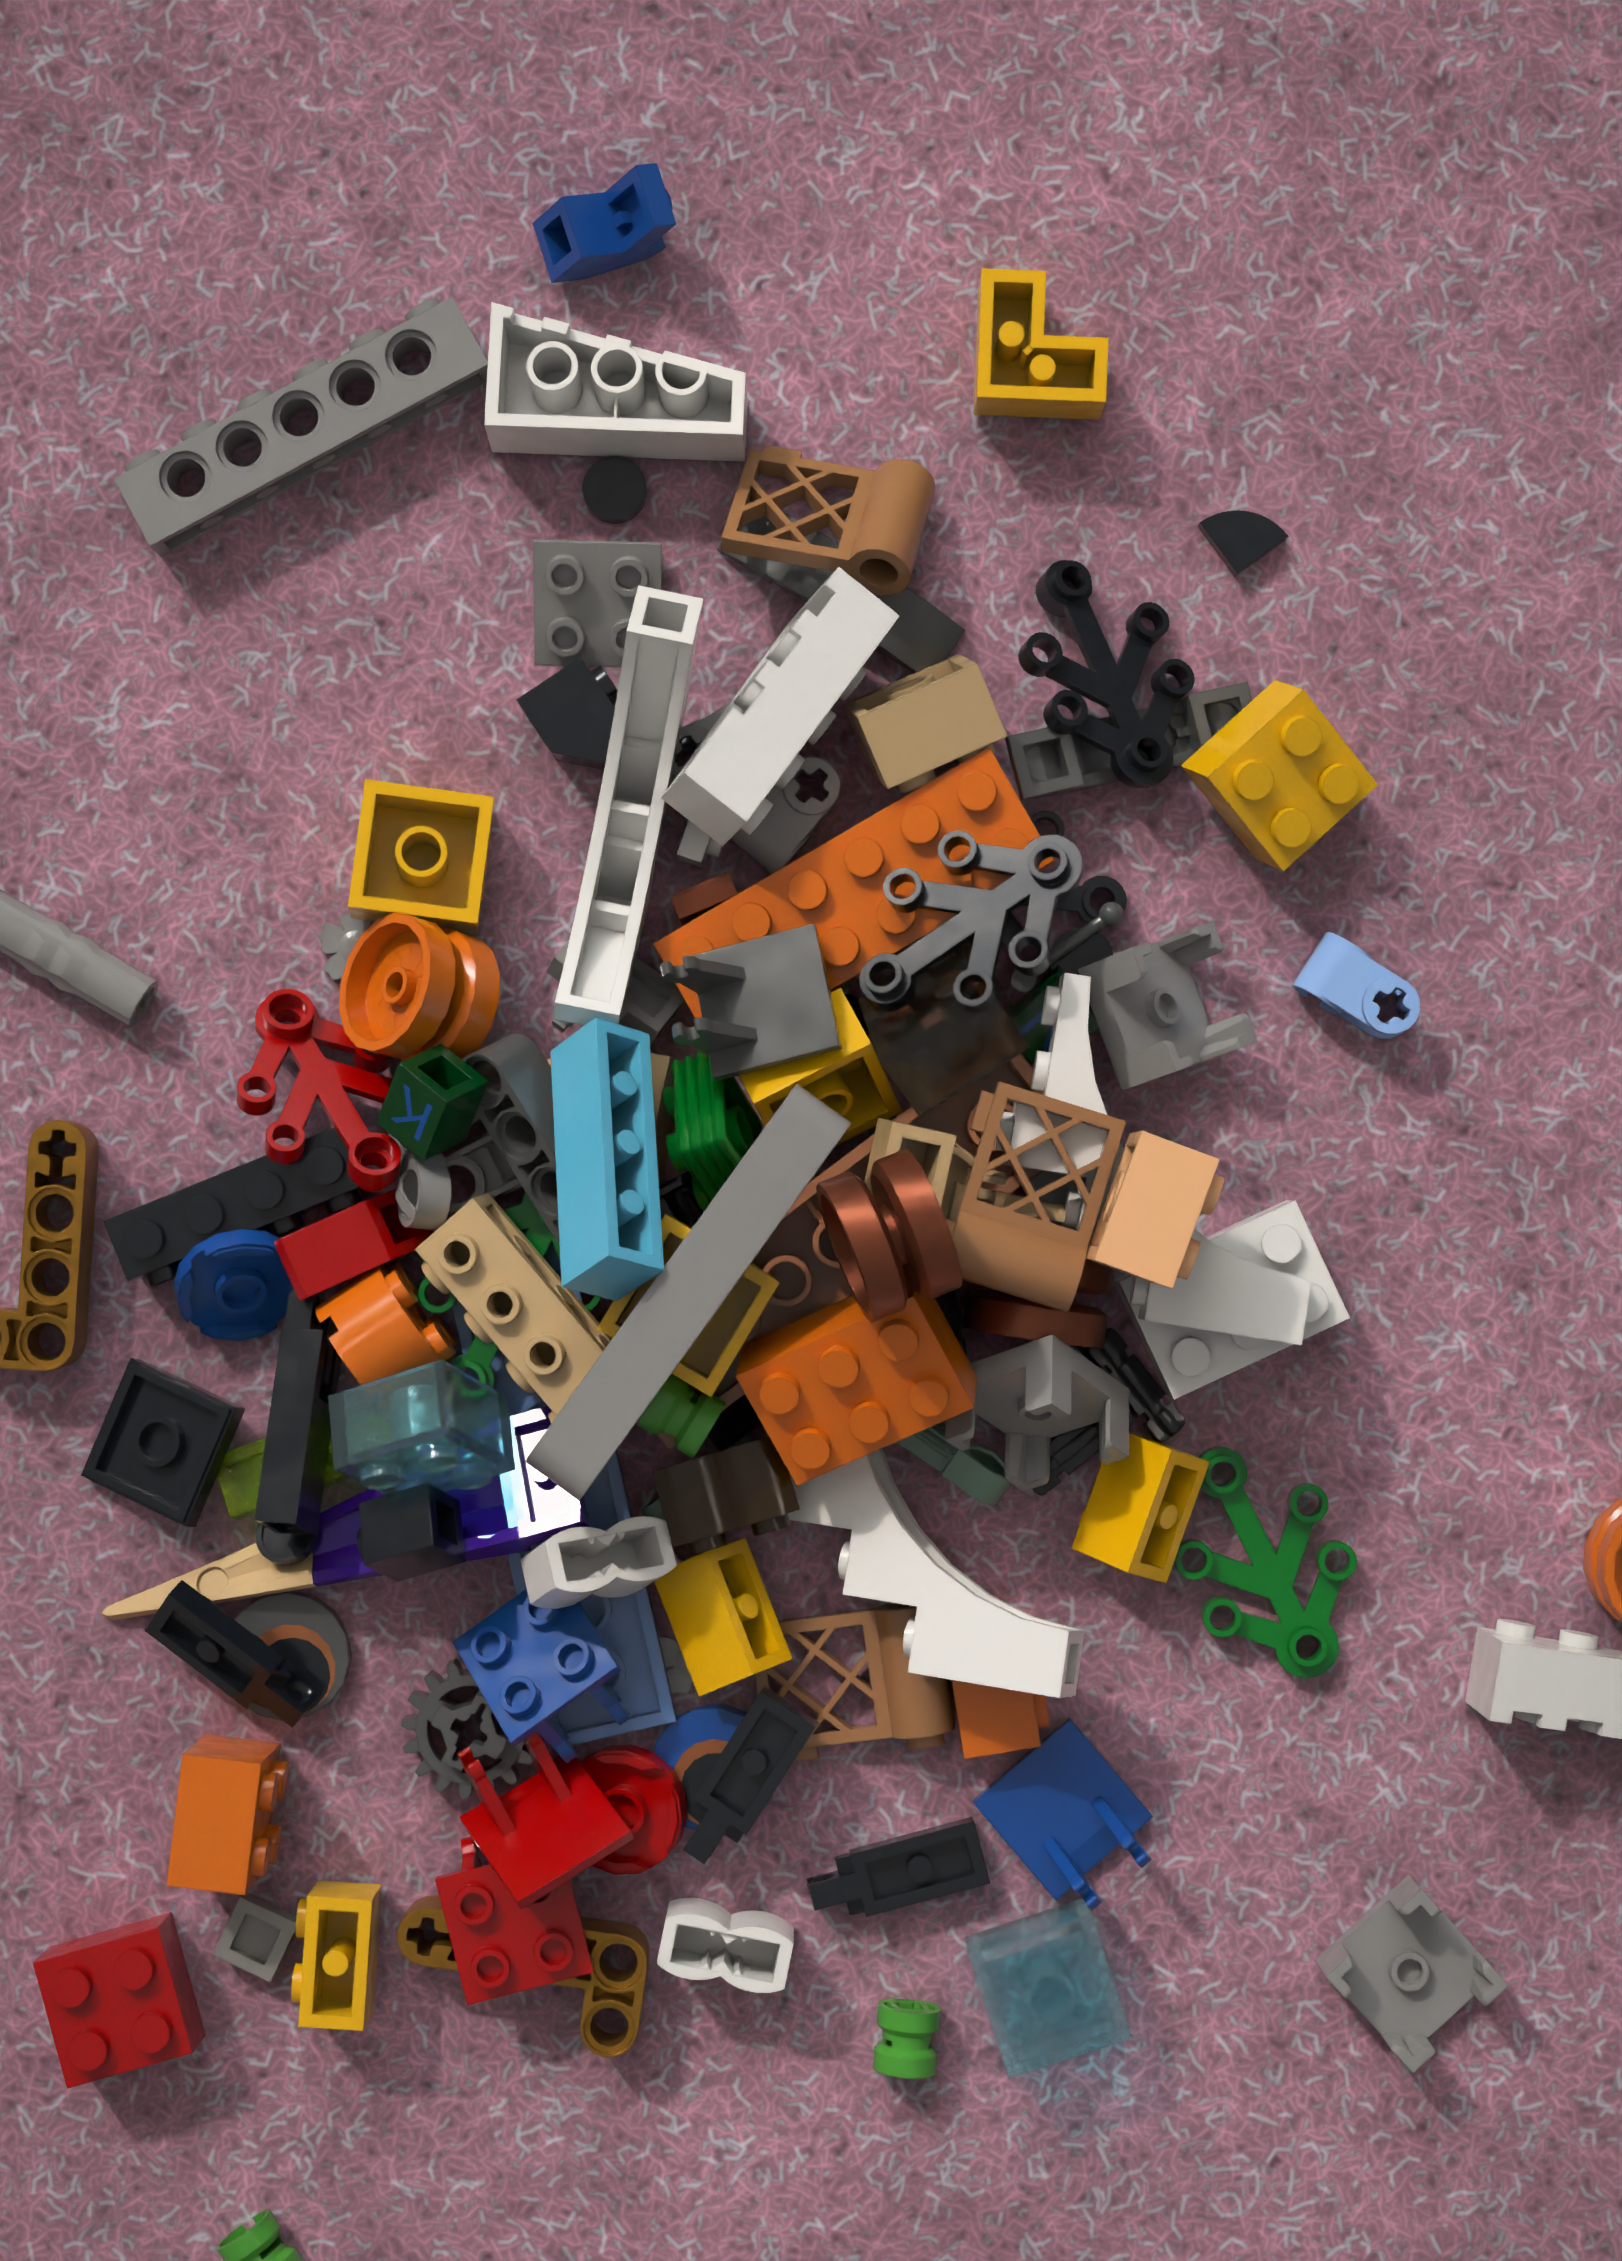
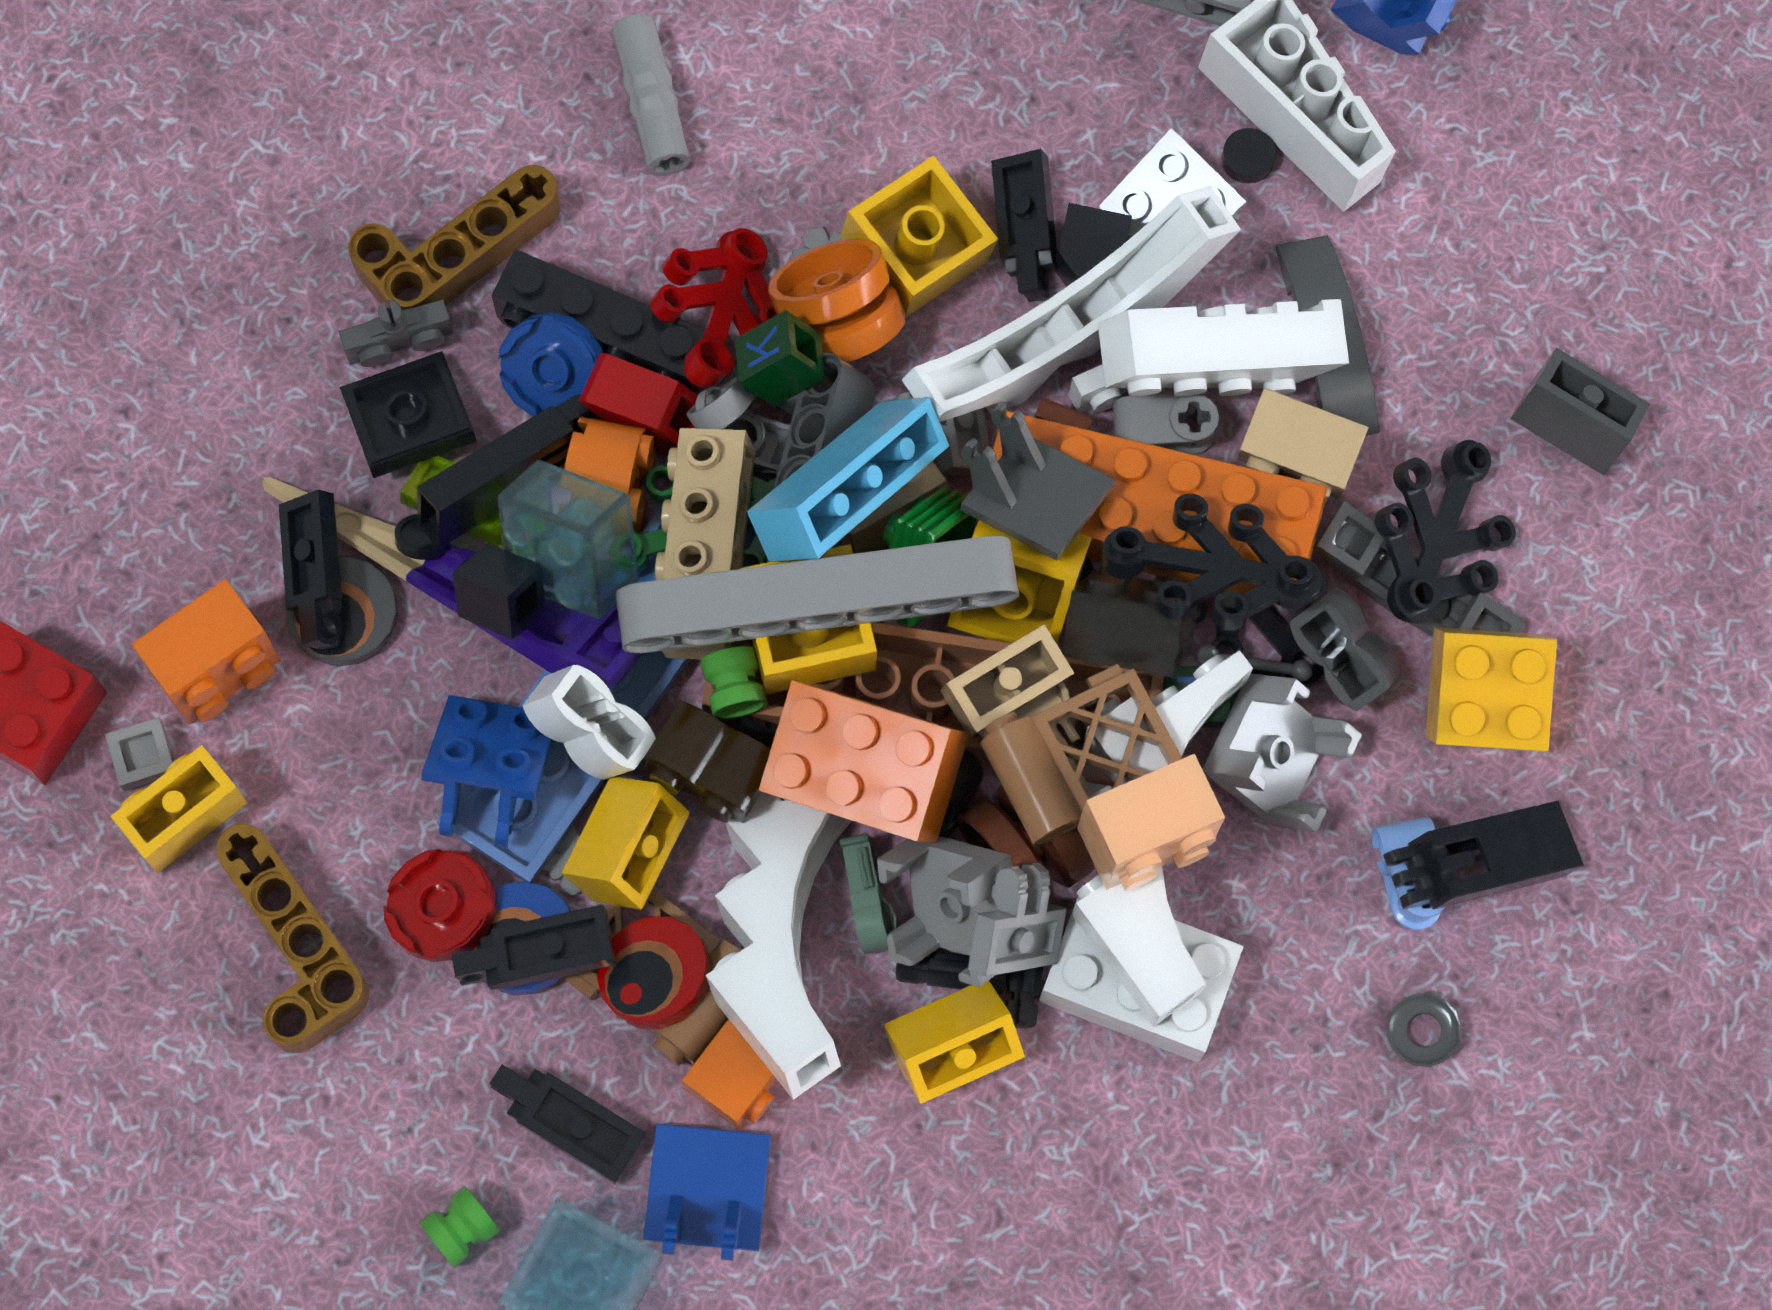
camera: 40 degrees right, 15 degrees down
(69, 1411) = (395, 330): none -> dark grey plate
(443, 1715) = (382, 764): dark grey gear -> none
(491, 745) = (1025, 220): none -> black hinge
(506, 1947) = (303, 892): red plate -> none
(543, 1826) = (384, 851): red plate -> none
(742, 1947) = (417, 1053): white brick -> none
(856, 1693) = (656, 972): none -> tile
(881, 517) = (1379, 314): medium nougat piece -> none
(889, 1235) = (980, 673): copper wheel -> none
(1023, 369) = (1570, 306): yellow brick -> none
(1119, 449) = (1580, 411): none -> dark grey brick
(1122, 1383) = (1023, 929): none -> light grey hinge
(1135, 860) = (1354, 659): none -> dark grey brick
(1241, 537) = (1606, 541): black tile -> none
(1271, 1572) = (991, 1174): green plant -> none
(1427, 897) = (1515, 846): none -> black hinge
(1511, 1129) = (1430, 1005): none -> dark grey piece

